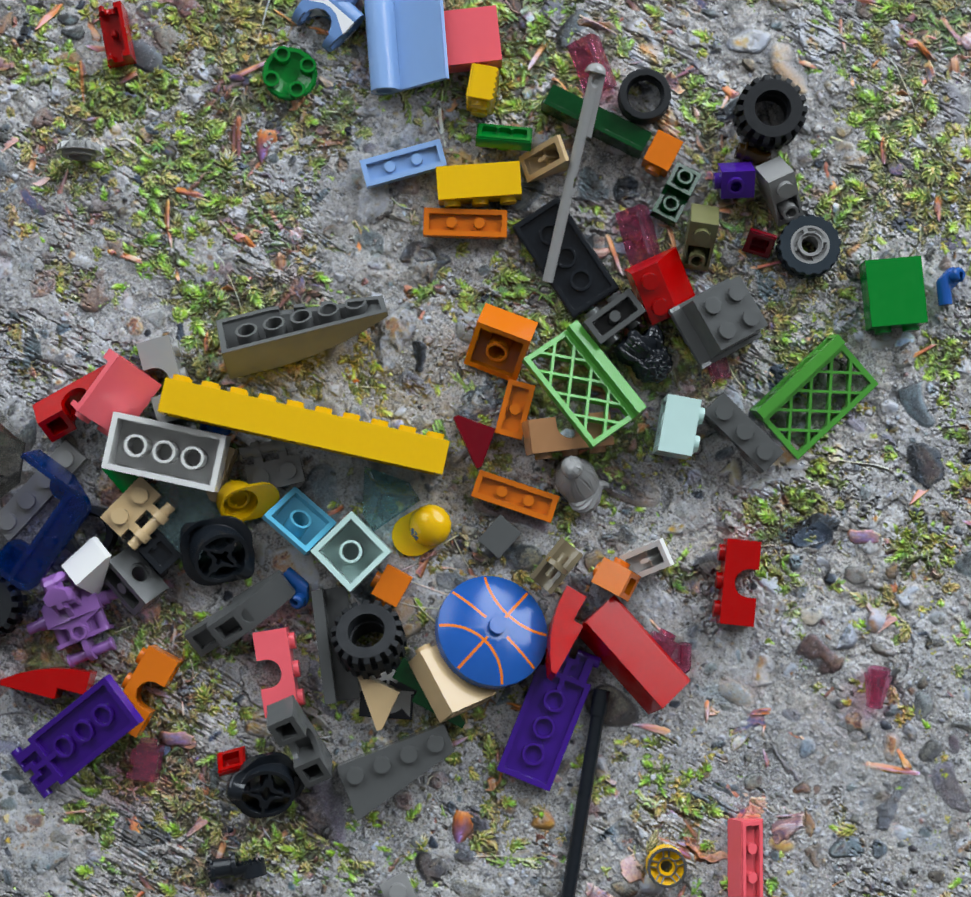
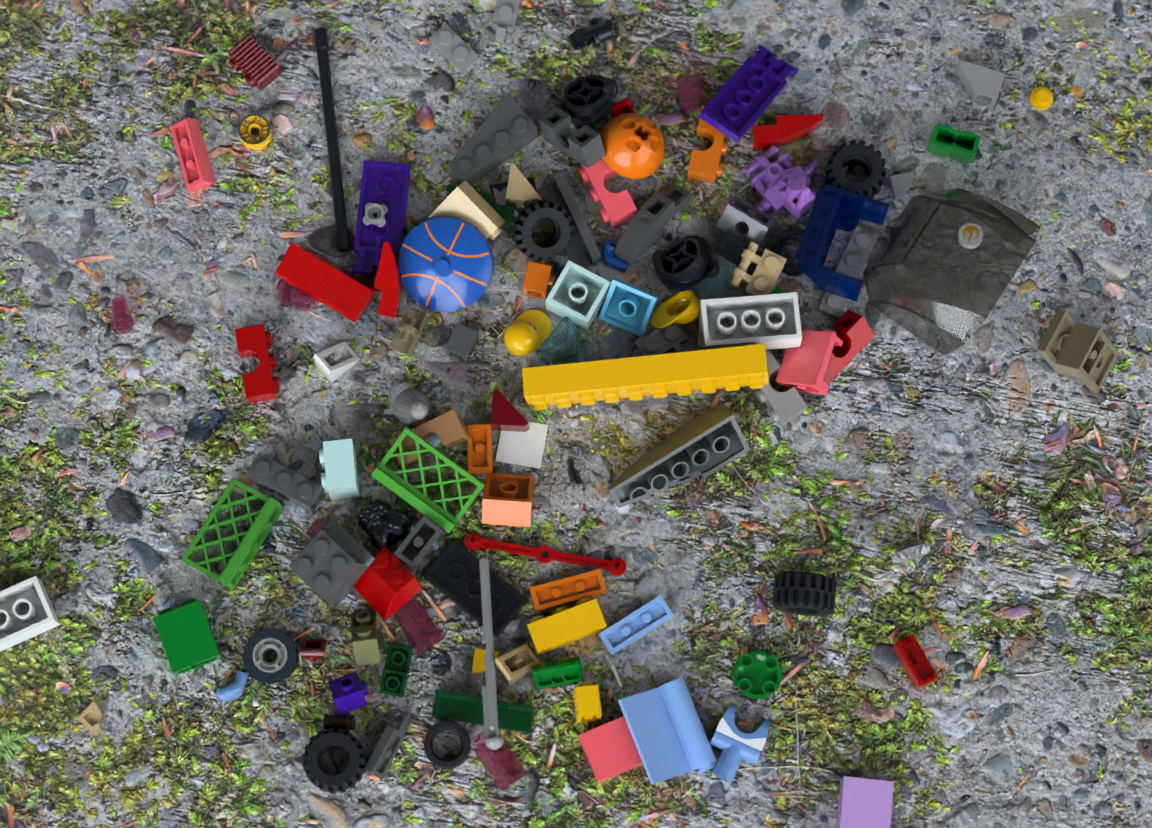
camera: 160 degrees right, 10 degrees down
(89, 566) = (783, 219): white slope -> none
(210, 134) = (804, 593): none -> black tyre
(232, 714) = (632, 145): none -> orange piece
(405, 236) = (474, 542): none -> red piece
(465, 399) = (523, 447): none -> white sticker
(515, 496) = (458, 379): orange plate -> none
(547, 720) = (370, 209): none -> light grey plate
(582, 177) = (479, 660): none -> yellow tile
(615, 577) = (357, 336): orange brick -> none
(661, 154) = (418, 698): orange brick -> none
(706, 115) = (388, 744): none -> dark grey hinge
(779, 190) = (308, 697): light grey slope -> none
(857, 223) = (233, 690): none -> medium blue arm
(946, 283) = (144, 661): blue arm -> none

